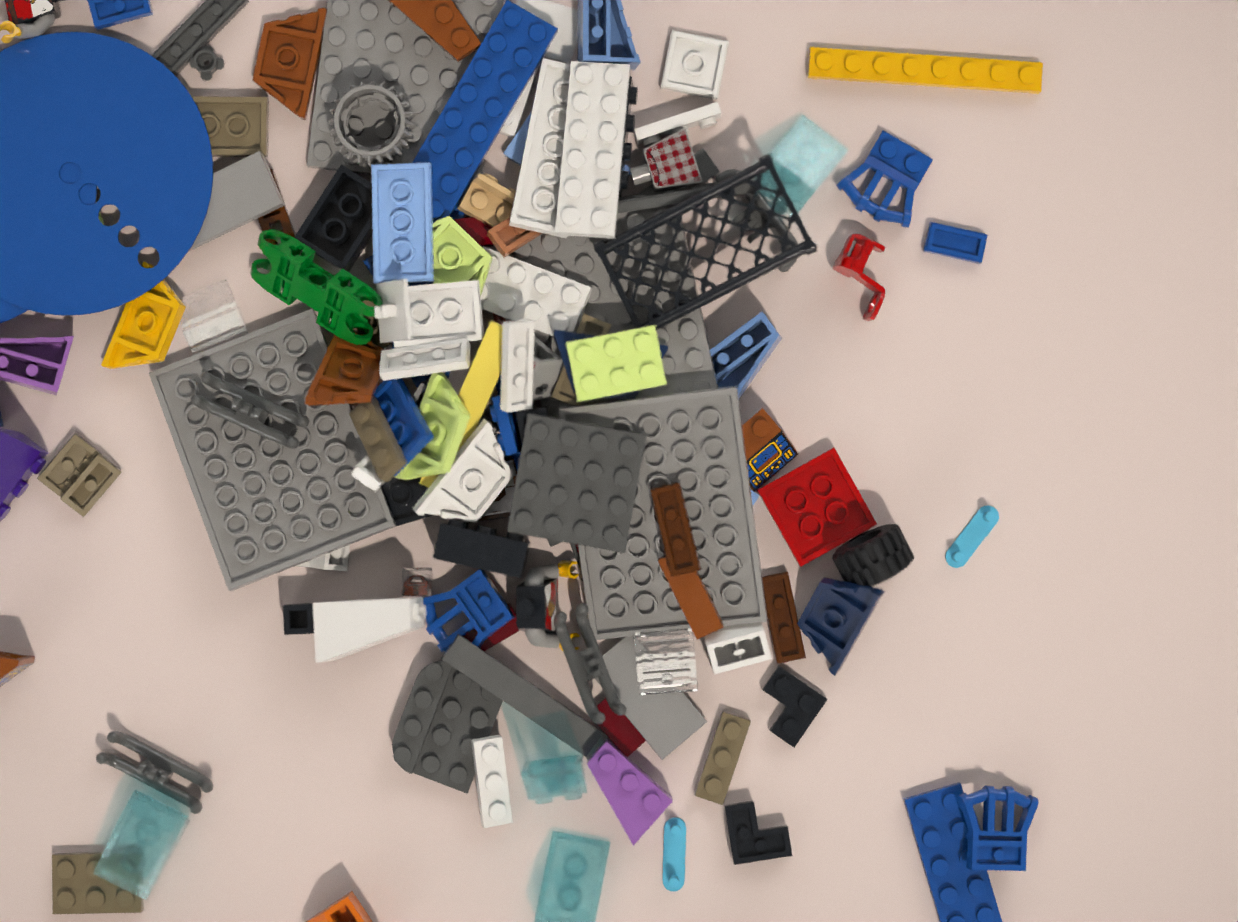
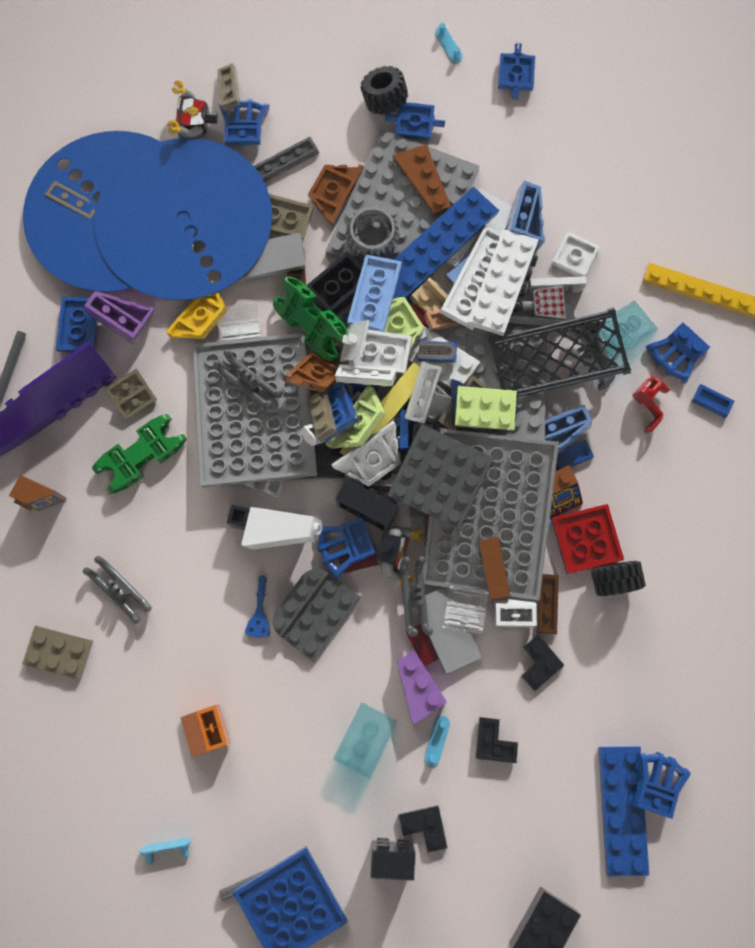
camera: 15 degrees right, 10 degrees down
(135, 544) = (139, 454): none -> green piece
(141, 844) = (93, 633): clear light blue slope -> none
(203, 55) = (283, 174): dark grey plate -> none
(370, 750) = (259, 616): none -> blue piece
(417, 581) = (322, 514): clear tile -> none
(491, 781) = (331, 657): white plate -> none
(521, 695) = (367, 606): dark grey tile -> none
(522, 288) = (437, 351): none -> tile
(554, 778) = (374, 666): clear light blue slope -> none
(675, 529) = (496, 522): reddish brown tile -> none
(722, 758) = (485, 685): dark tan plate -> none
(767, 386) = (574, 455): none -> blue tile
(837, 618) = (586, 611): dark blue wing -> none
(972, 536) = (682, 586): medium azure piece -> none

